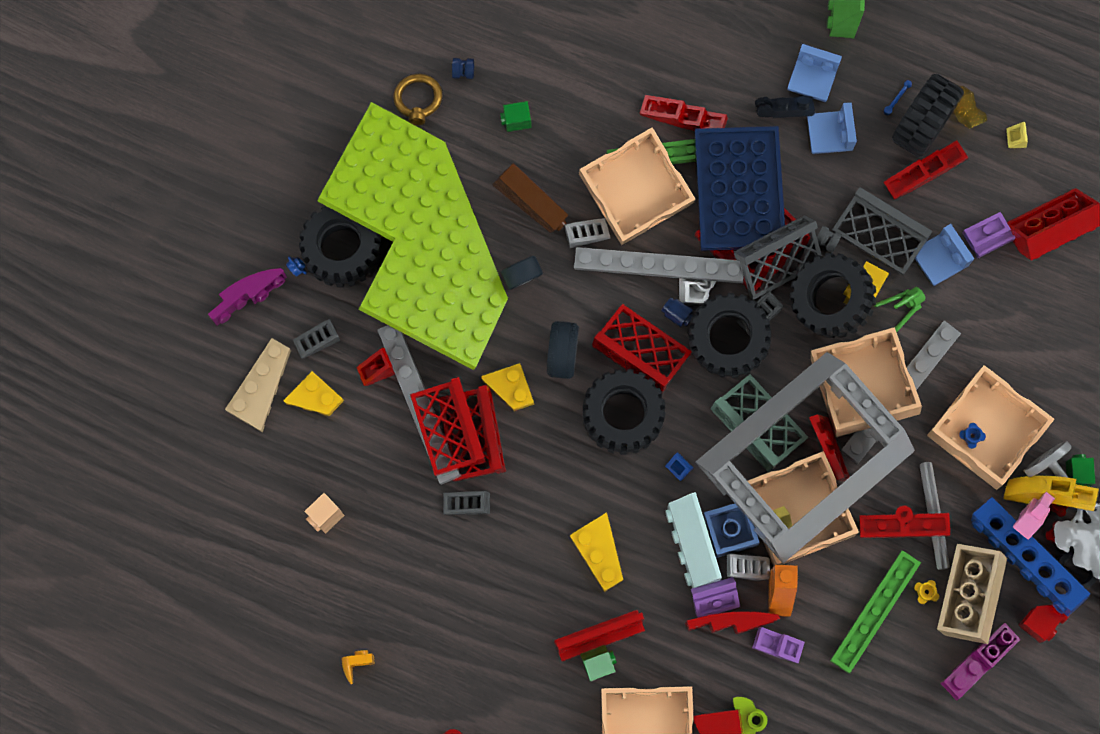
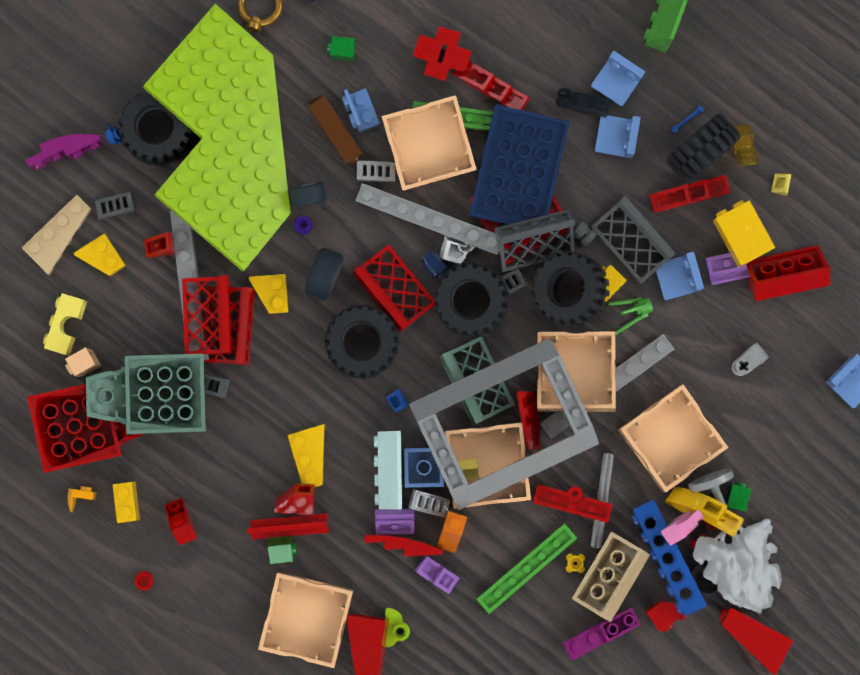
camera: 10 degrees right, 10 degrees up
(291, 460) = (67, 308): none -> light yellow arch
(344, 578) = (68, 435): none -> red wedge
(409, 526) = (151, 394): none -> sand green wedge
(410, 656) = (126, 502): none -> yellow brick
(477, 662) = (180, 521): none -> red slope
(525, 301) = (299, 221): none -> dark purple plate
(553, 173) = (361, 108): none -> medium blue bracket
(600, 602) = (297, 500): none -> red slope
(637, 94) = (430, 51): none -> red piece
(978, 435) = (654, 446): blue plate -> none
(996, 192) = (743, 233): none -> yellow piece
(1045, 323) = (751, 358): none -> light grey piece

